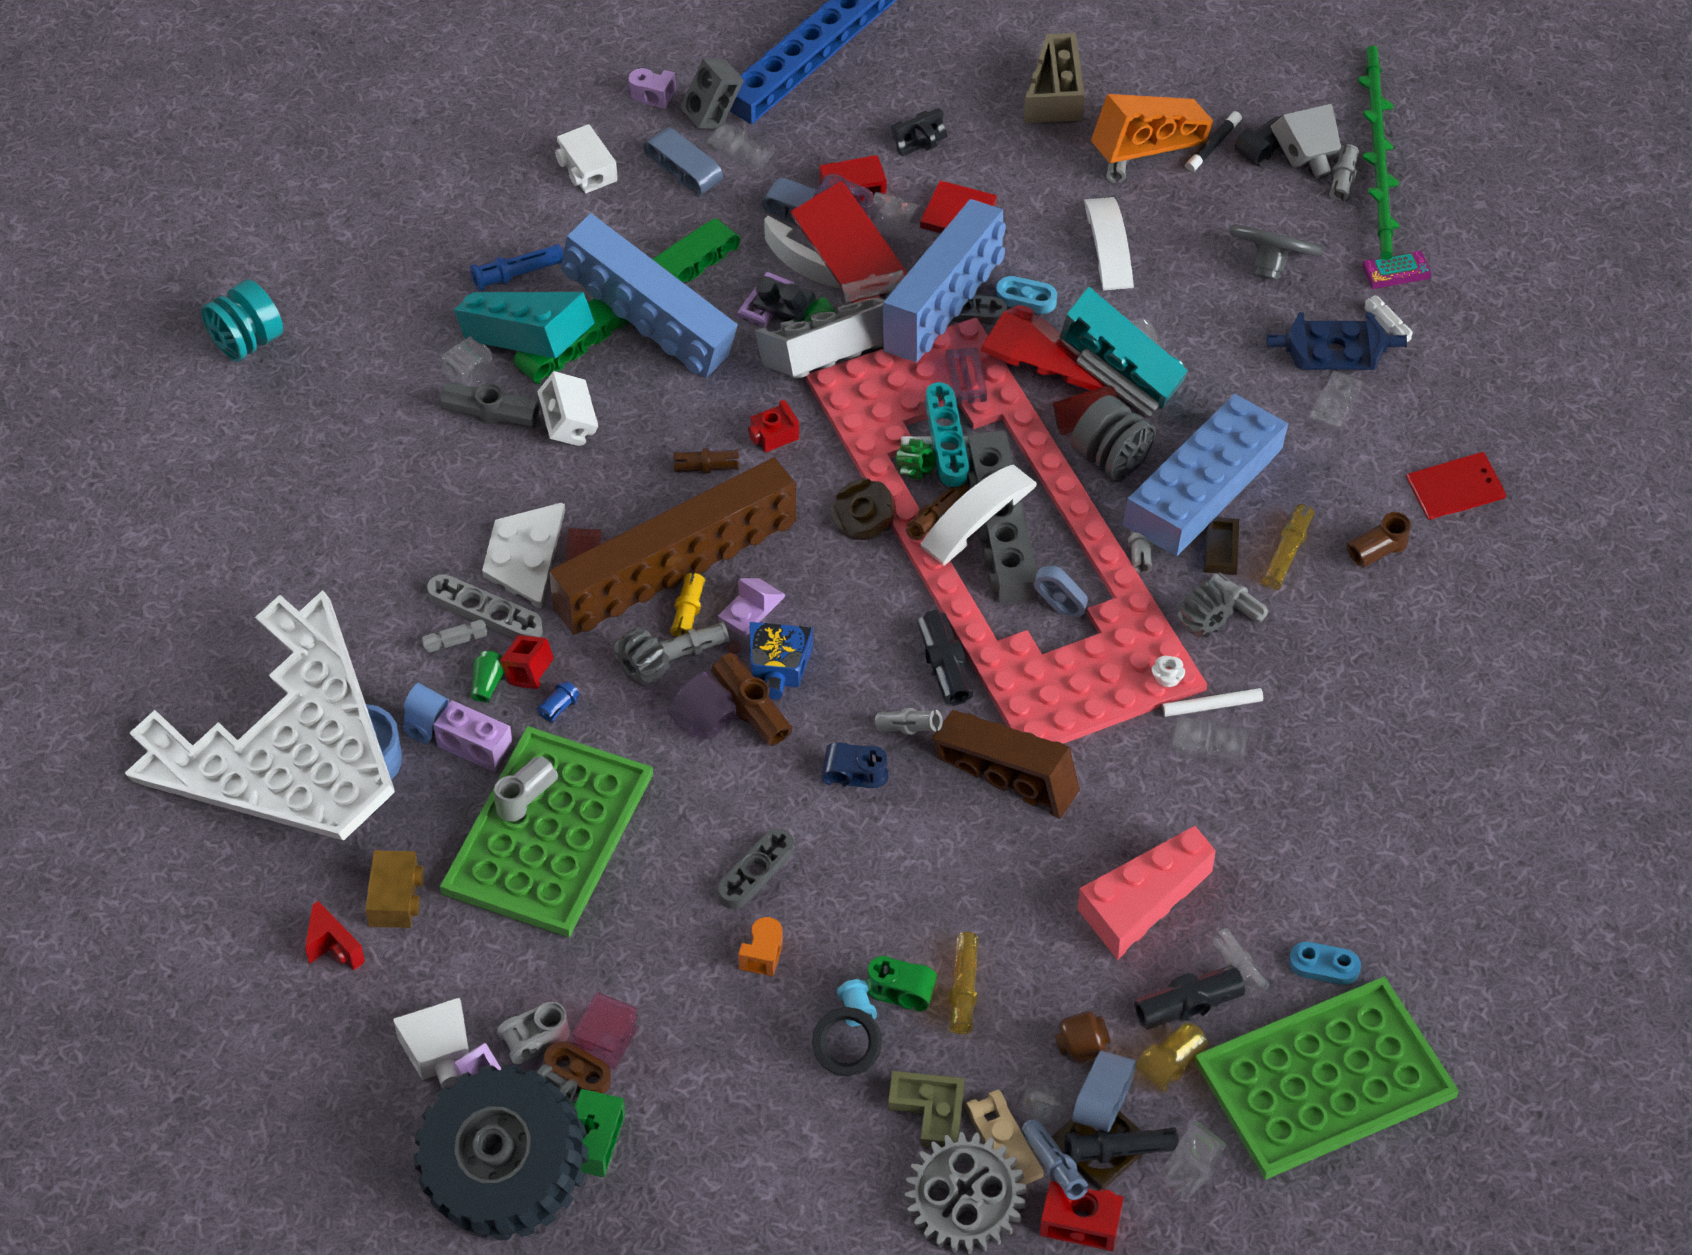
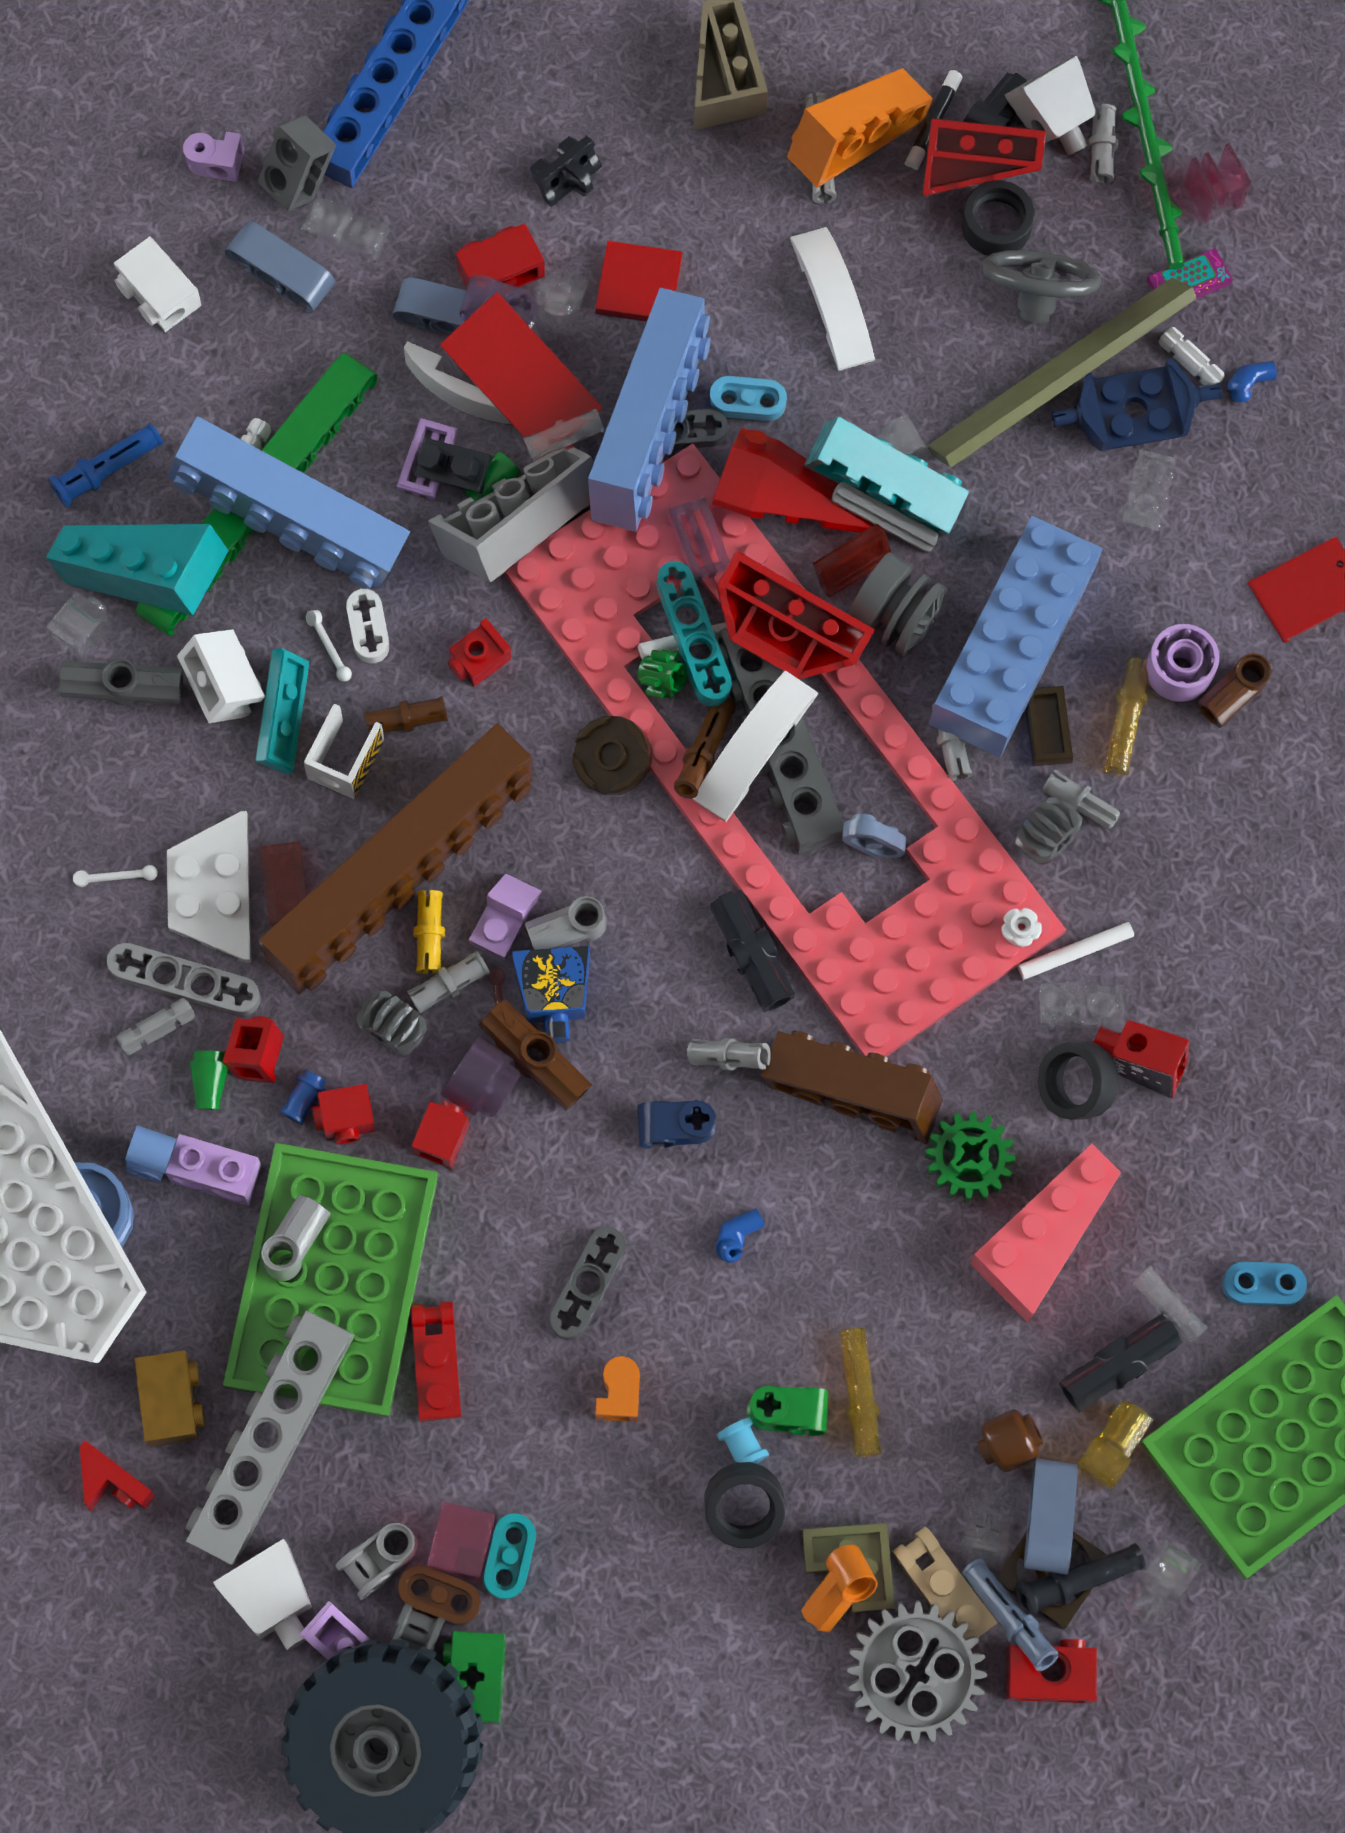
camera: 15 degrees left, 20 degrees up
(424, 531) = (82, 879): none -> white hinge
(466, 942) = (230, 1540): none -> light grey brick
(588, 715) = (344, 1114): none -> red brick
(609, 442) = (282, 711): none -> teal tile
(617, 904) = (436, 1363): none -> red plate
(640, 1052) = (509, 1557): none -> teal plate
(651, 388) = (314, 619): none -> white hinge
(661, 484) = (340, 782): none -> white piece
(661, 742) = (441, 1133): none -> red brick
(685, 398) = (359, 627): none -> white beam
(811, 612) = (561, 927): none -> light grey piece
(885, 852) = (733, 1234): none -> blue arm
(912, 1116) = (846, 1583): none -> orange piece
(1020, 427) = (786, 621): none -> red wedge
(1092, 828) = (958, 1144): none -> green gear
(1209, 793) = (1052, 1087): none -> black tyre
(1242, 157) = (979, 153): none -> red wedge
(1255, 191) = (1001, 192): none -> black tyre
(1256, 777) = (1147, 1055): none -> red torso
(1280, 310) = (1061, 372): none -> olive tile
(1338, 511) = (1188, 643): none -> lavender piece
(1421, 203) = (1211, 183): none -> clear pink piece
(1433, 337) = (1247, 376): none -> blue arm

